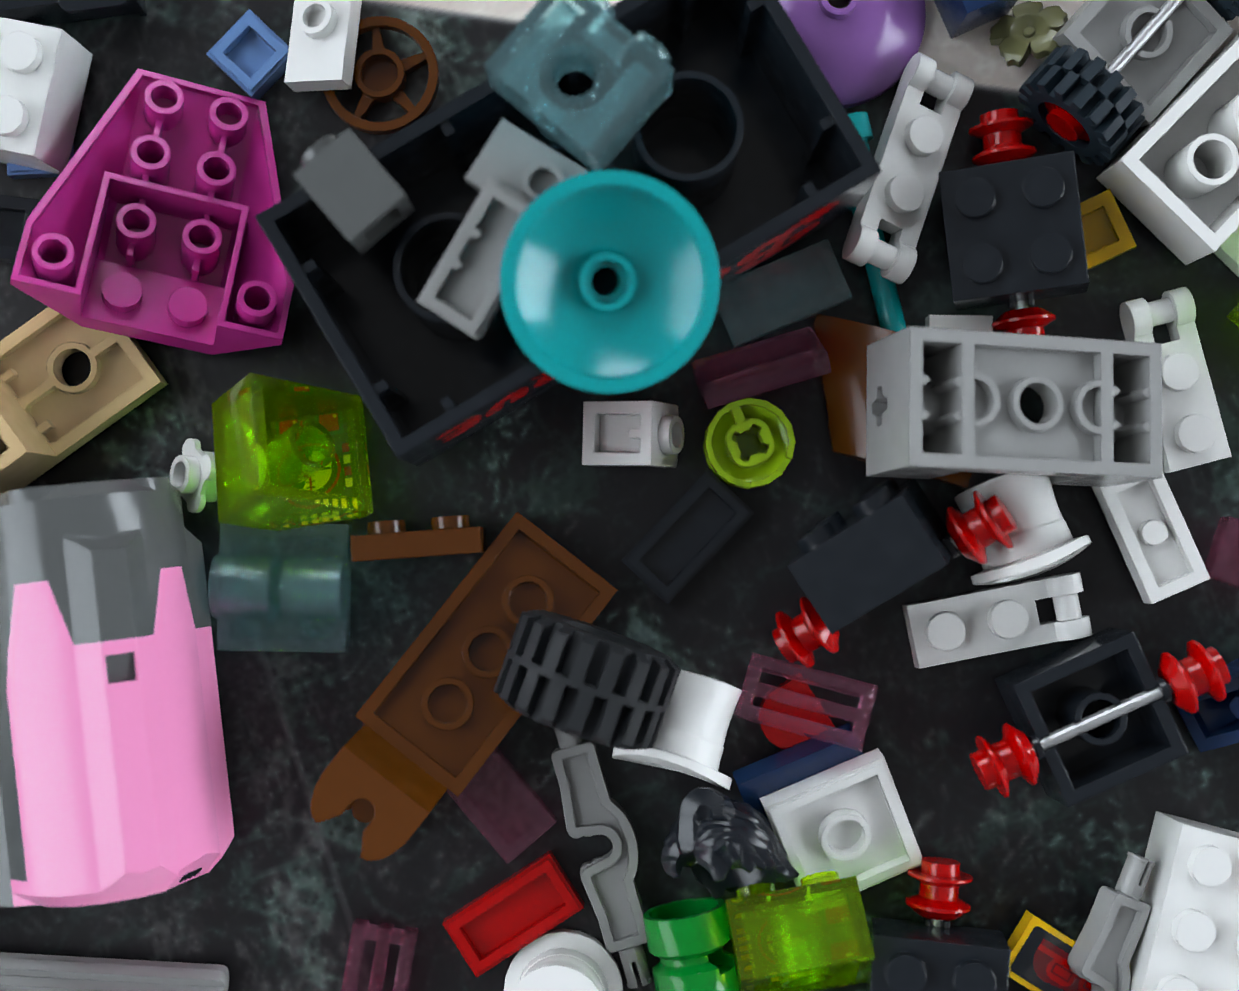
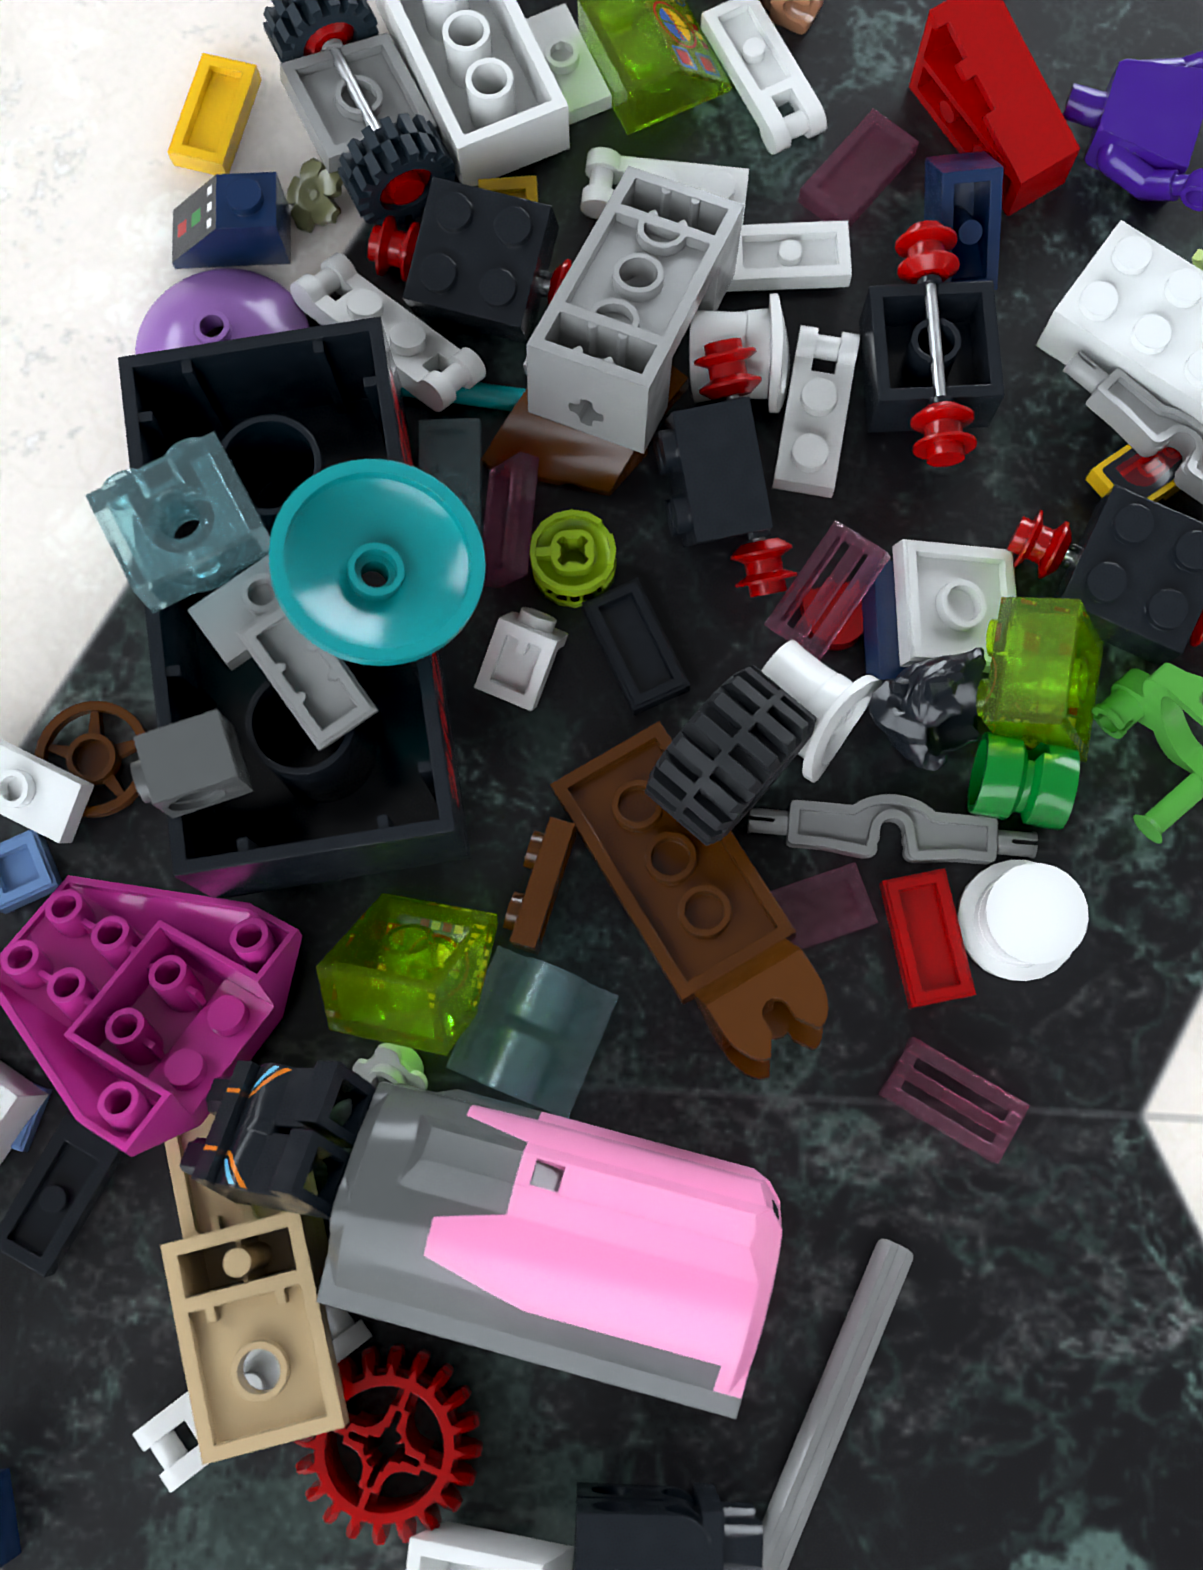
camera: 65 degrees left, 10 degrees down
(78, 384) = (275, 1131): none -> black hips

